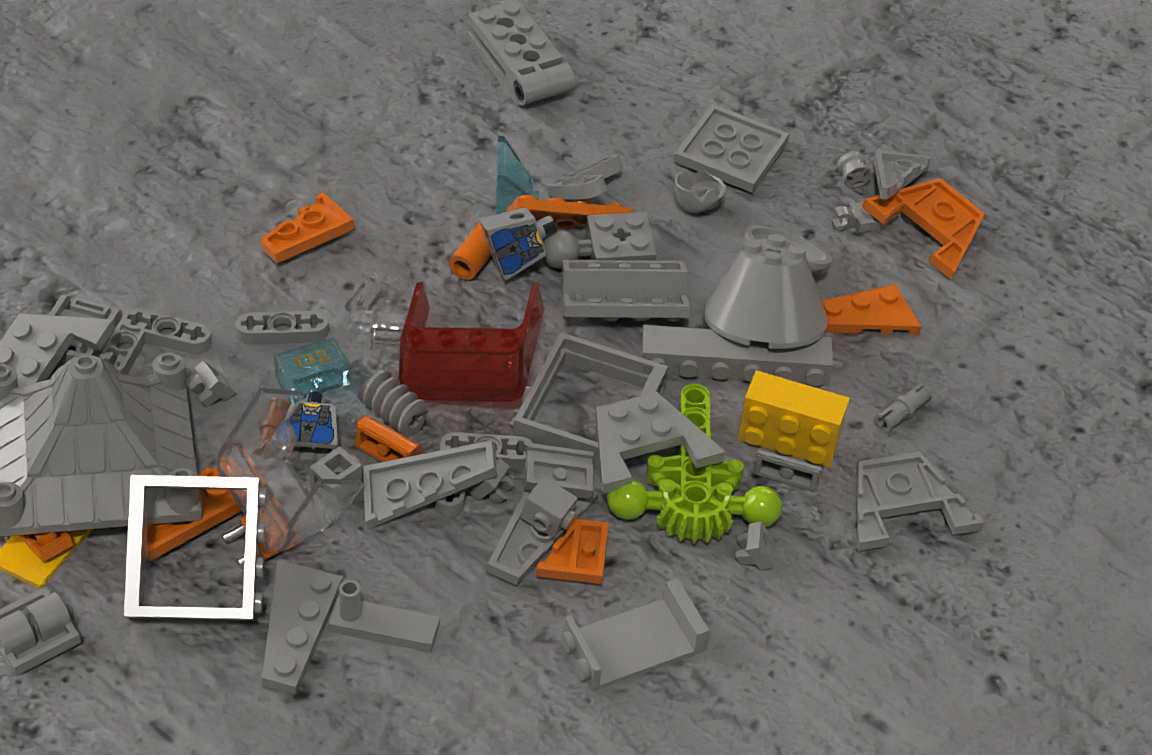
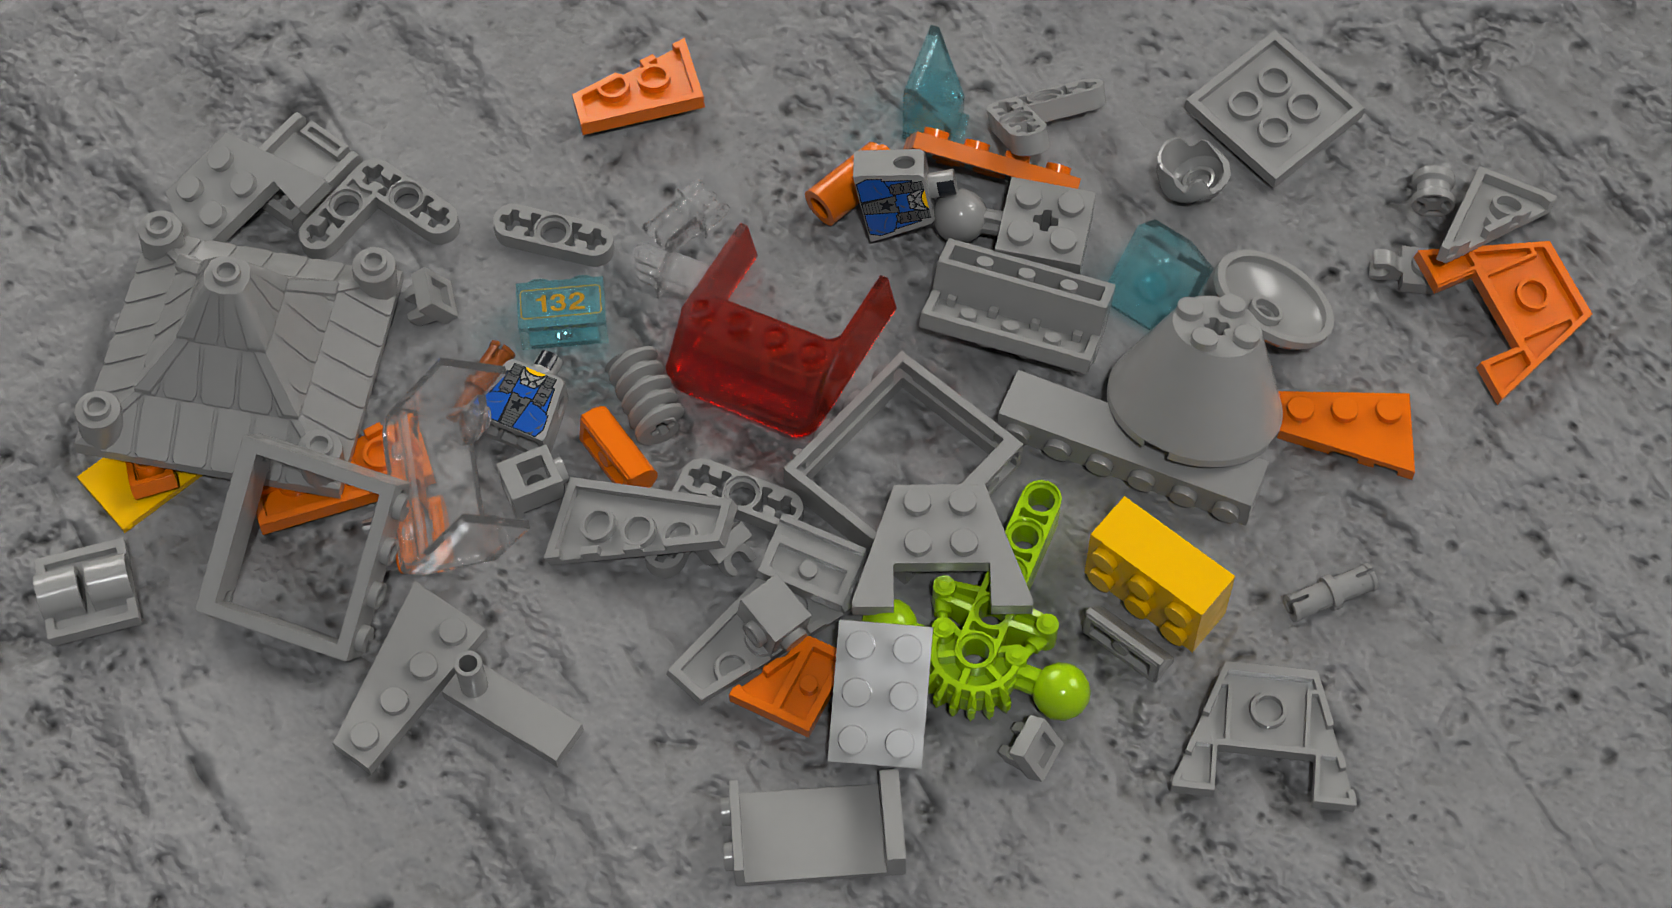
camera: 25 degrees right, 15 degrees up
(645, 534) = (880, 694): none -> light grey brick
(707, 253) = (1157, 273): none -> clear light blue slope

